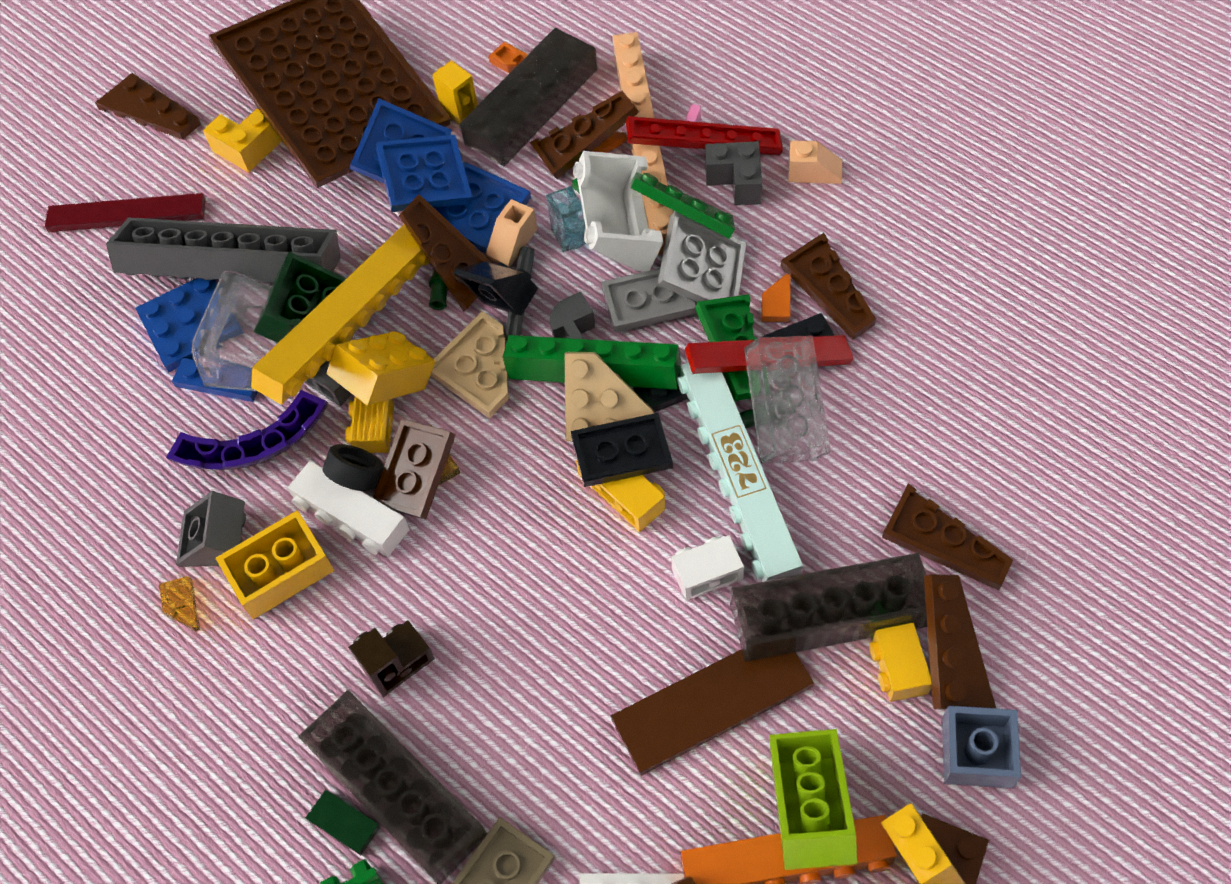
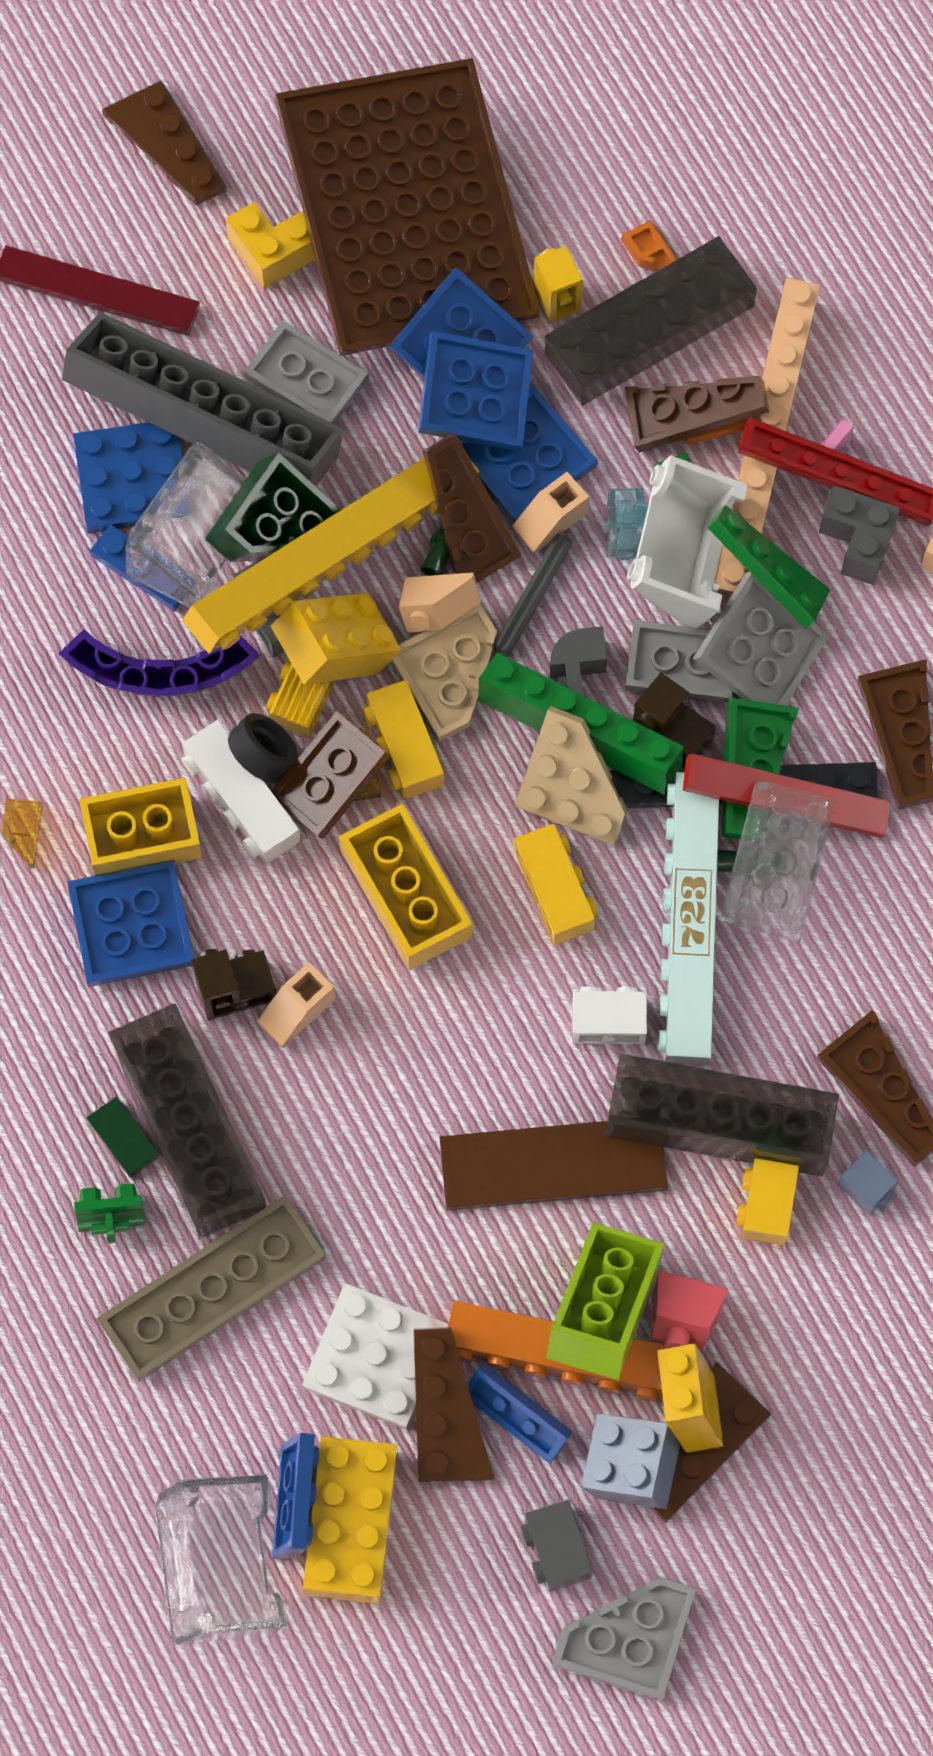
camera: 15 degrees right, 10 degrees up
(210, 529) = (80, 758): dark grey slope -> none
(291, 643) = (130, 923): none -> blue plate
(297, 207) = (306, 373): none -> light grey plate
(450, 318) = (437, 600): none -> light nougat slope
(451, 653) = (297, 1004): none -> light nougat slope
(475, 435) = (405, 739): none -> yellow brick
(498, 285) = (510, 580): black slope -> none
(506, 529) = (406, 886): none -> yellow brick
(621, 449) = (569, 846): black tile -> none
(651, 326) = (667, 712): none -> dark brown brick
(777, 301) = (832, 725): orange tile -> none
(878, 780) = (685, 1310): none -> coral torso
(954, 652) = (825, 1214): reddish brown wing -> none
(981, 747) = (805, 1320): sand blue brick -> none
(982, 615) = (869, 1184): none -> sand blue brick

